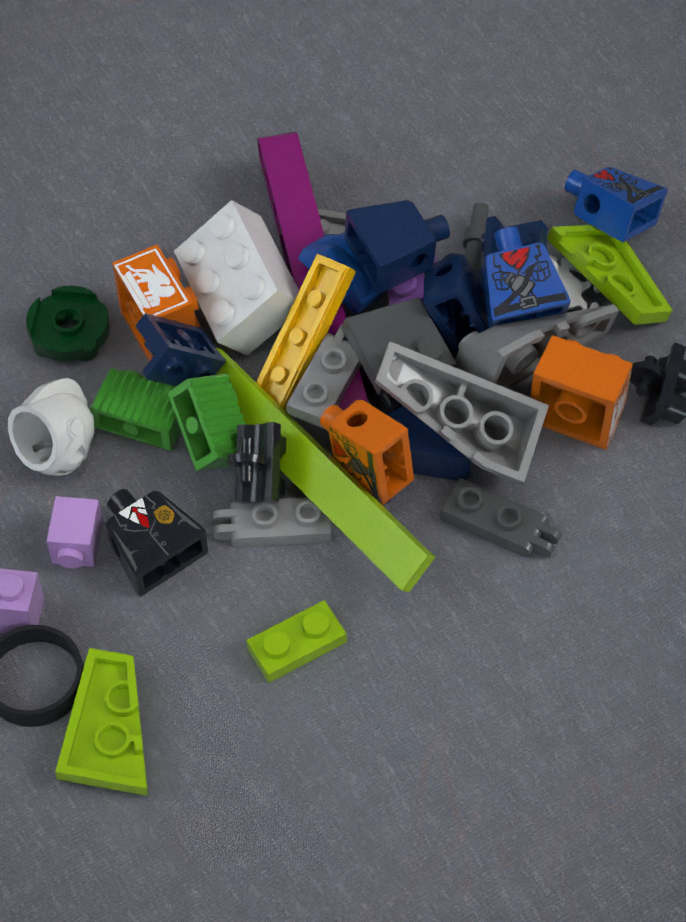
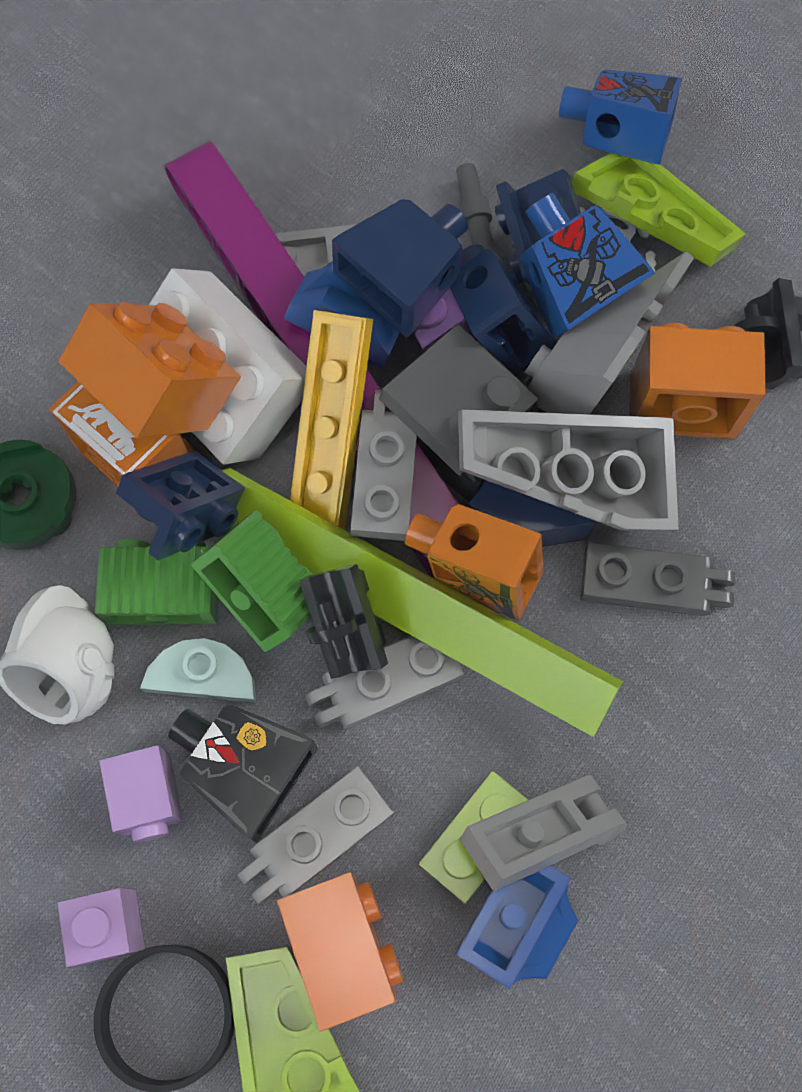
camera: 20 degrees left, 15 degrees up
(143, 473) = (200, 670): none -> light aqua plate
(169, 660) = (339, 949): none -> orange brick
(182, 603) = (316, 836): none -> light grey hinge
(191, 254) = (149, 368): none -> orange brick
(303, 697) = (521, 928): none -> blue slope
(341, 636) = (541, 832): none -> light grey plate

